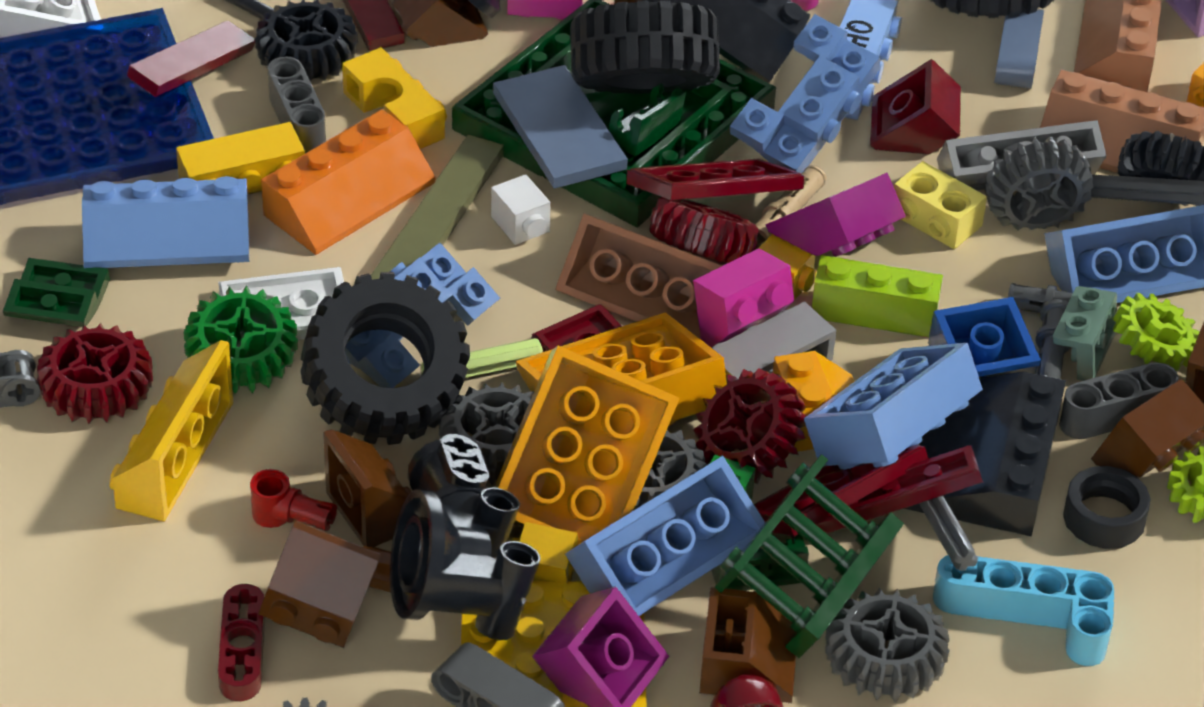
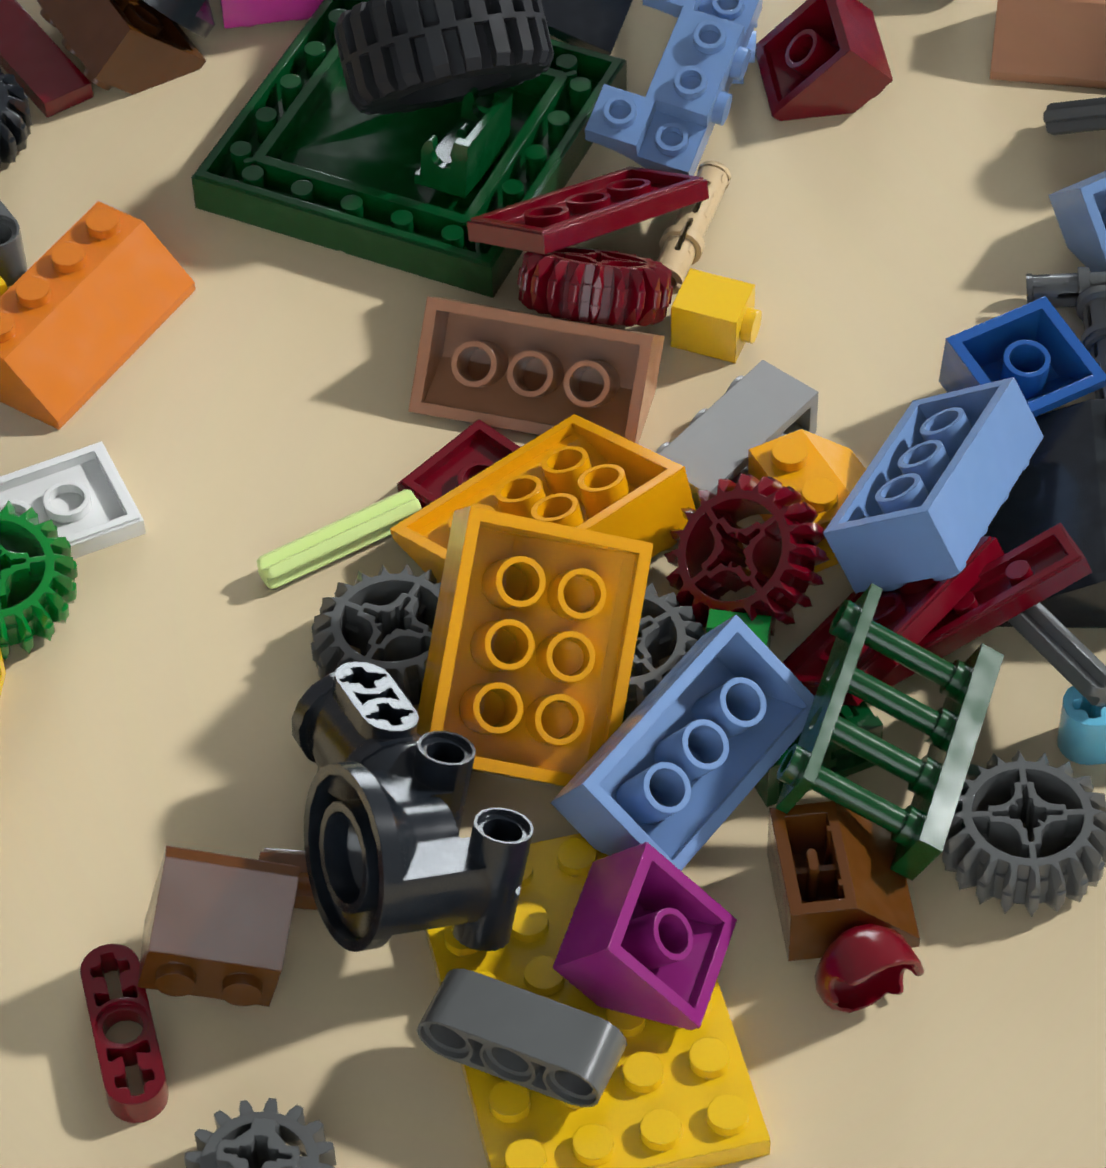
camera: 10 degrees left, 5 degrees up
(277, 502) = (115, 811): red pin -> none
(363, 487) = (237, 766): reddish brown slope -> none
(381, 81) = (80, 160): yellow arch -> none
(381, 352) = (190, 501): medium blue bracket -> none
(396, 308) = (226, 494): black tyre -> none
(444, 202) = (212, 343): olive tile -> none
(520, 209) = (329, 305): white brick -> none
(552, 546) = (522, 790): yellow brick -> none
(560, 126) = (351, 176): sand blue tile -> none
(741, 295) = (679, 370): dark pink slope -> none
(842, 219) = (775, 230): magenta slope -> none
(876, 295) = (854, 330): lime brick -> none
(940, 204) = (893, 183): light yellow brick -> none
(973, 157) = (984, 94): light grey brick -> none
(1037, 176) = (1023, 128): dark grey gear -> none

